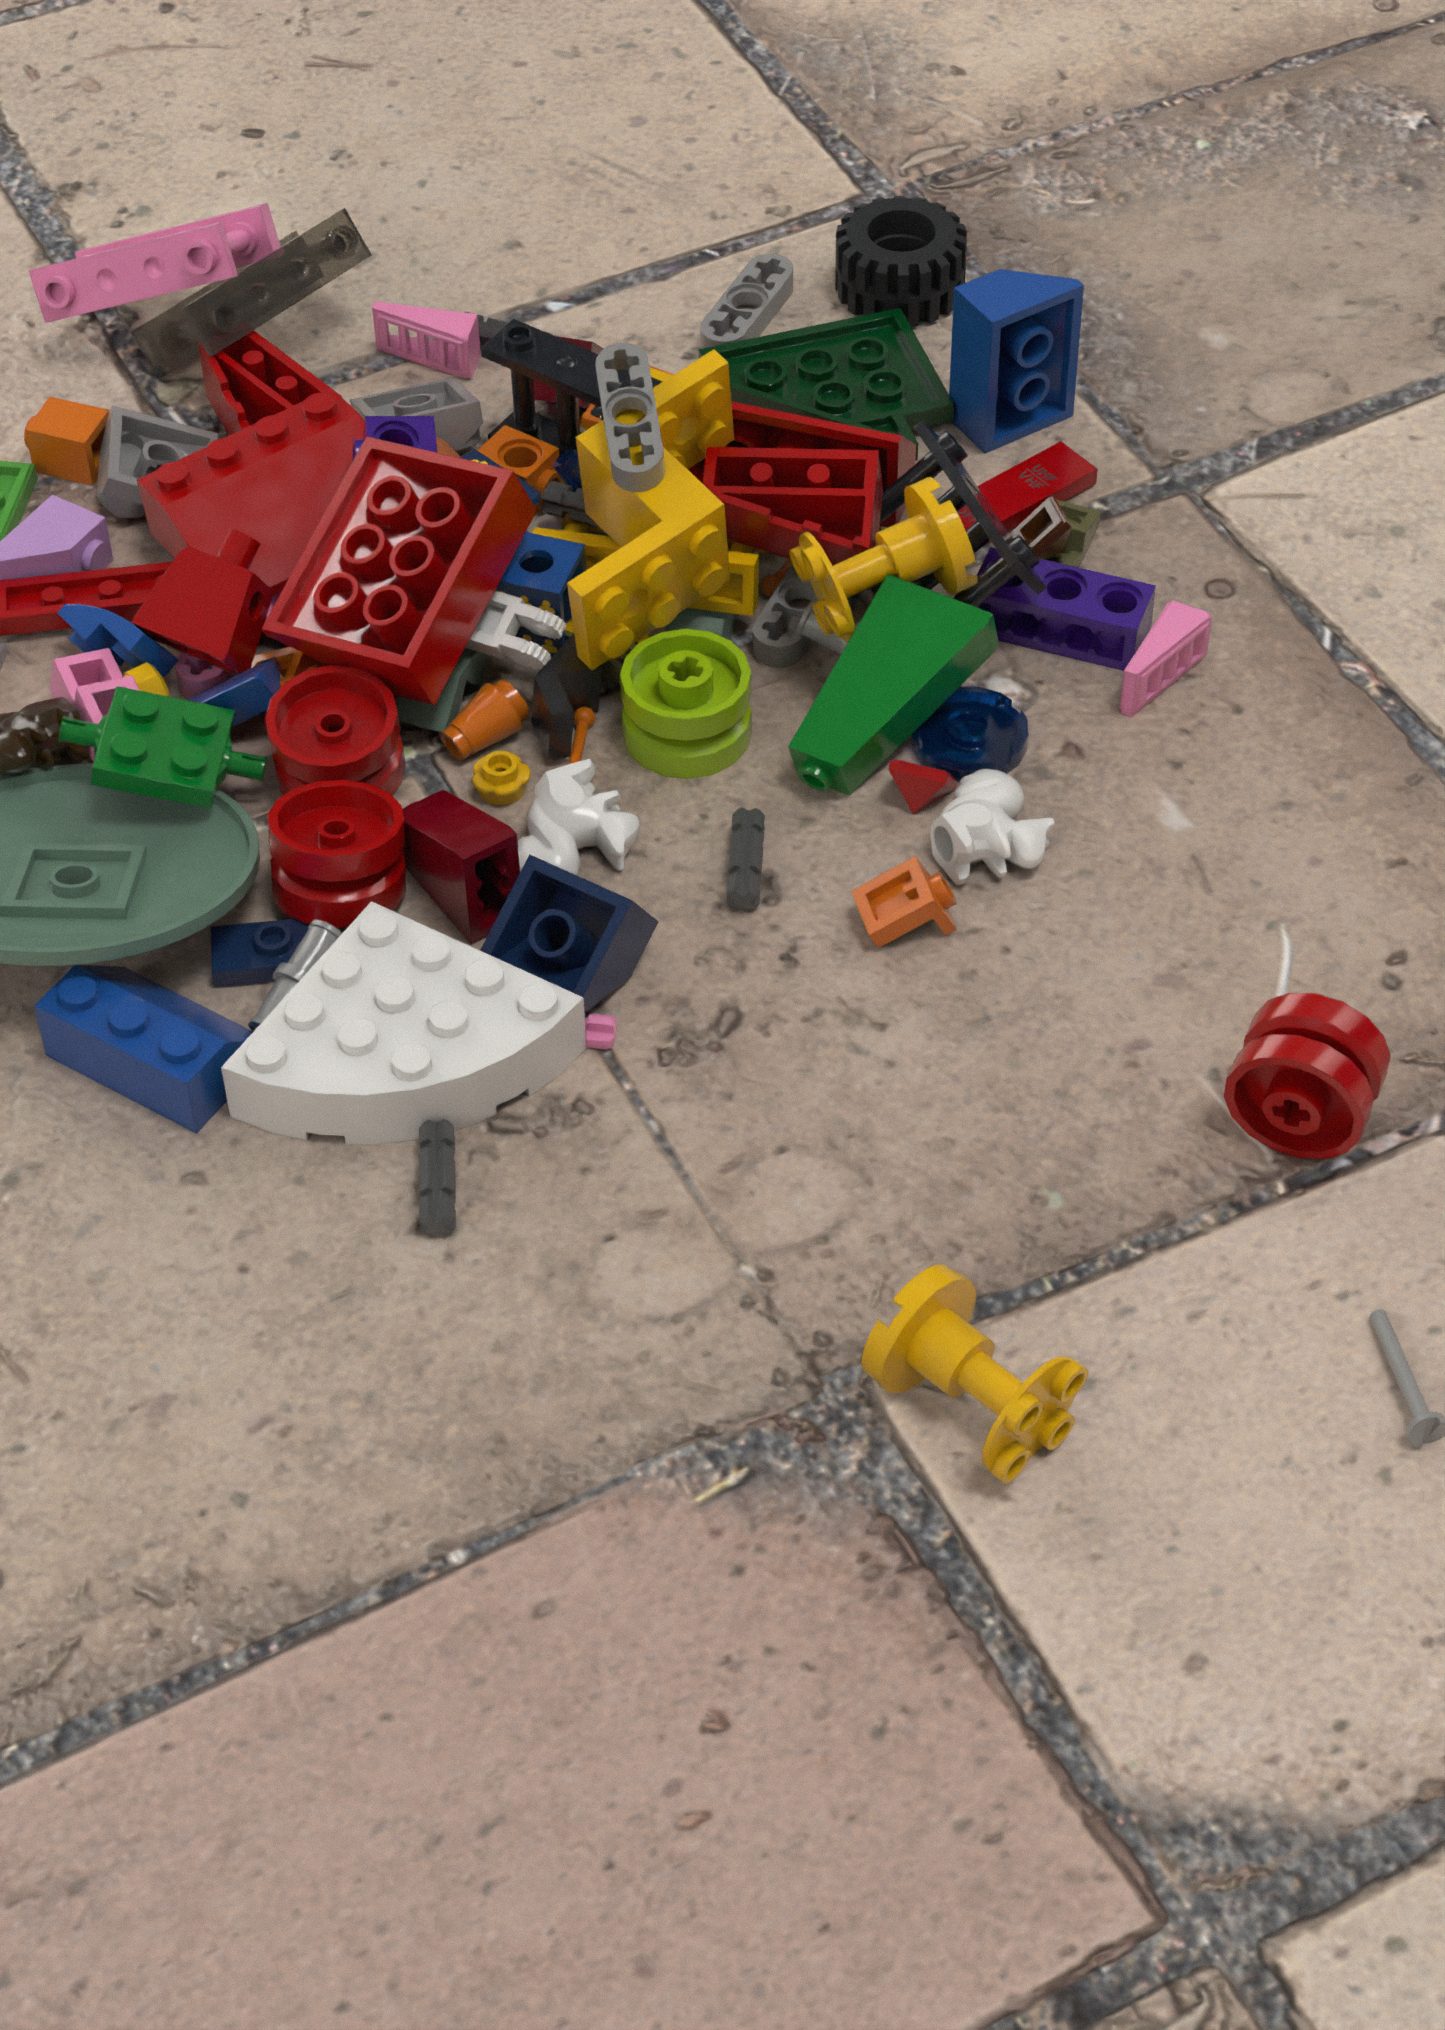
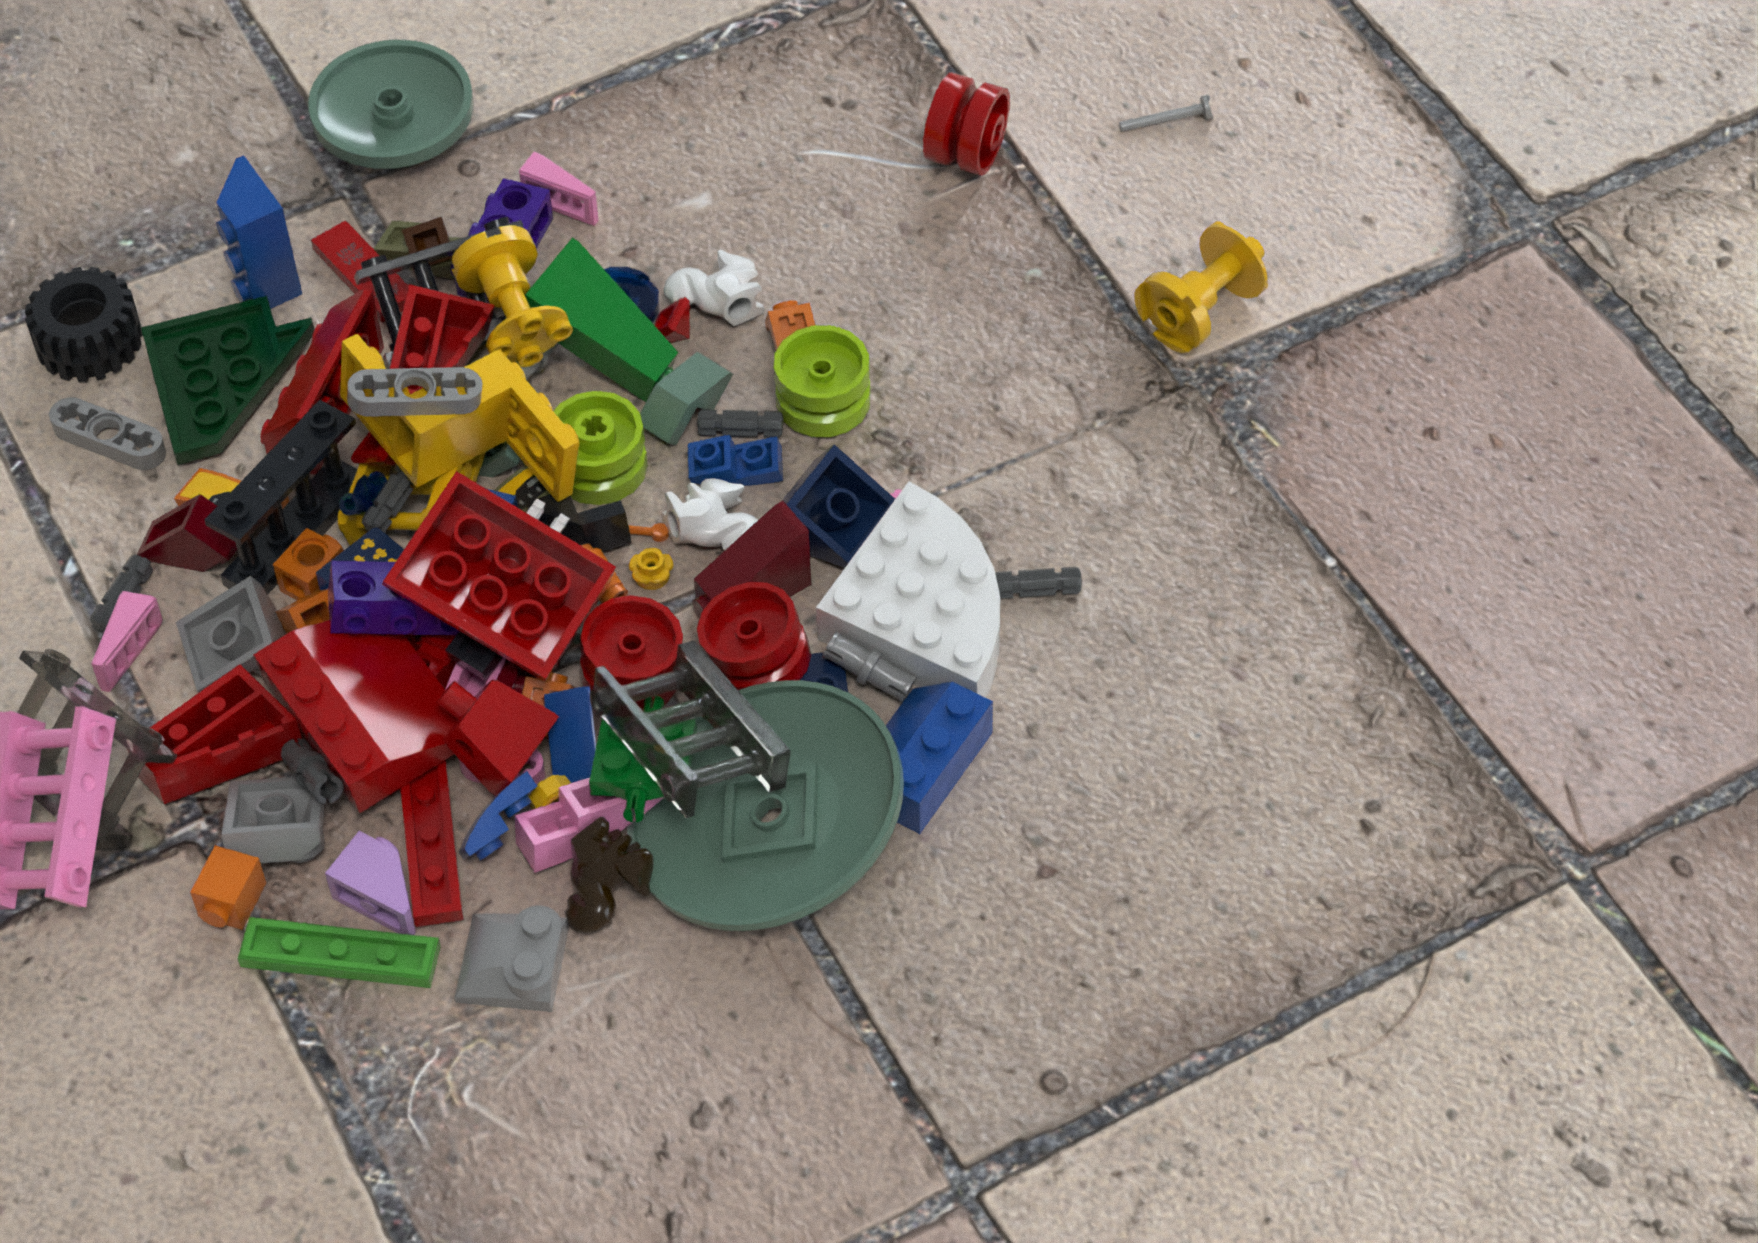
camera: 90 degrees left, 5 degrees up
(160, 811) = (710, 697): none -> clear smoke fence
(677, 855) = (742, 463): none -> blue slope
(790, 791) = (675, 398): none -> sand green slope
(793, 921) = (822, 380): none -> lime wheel
(1296, 484) = (391, 104): none -> sand green dish

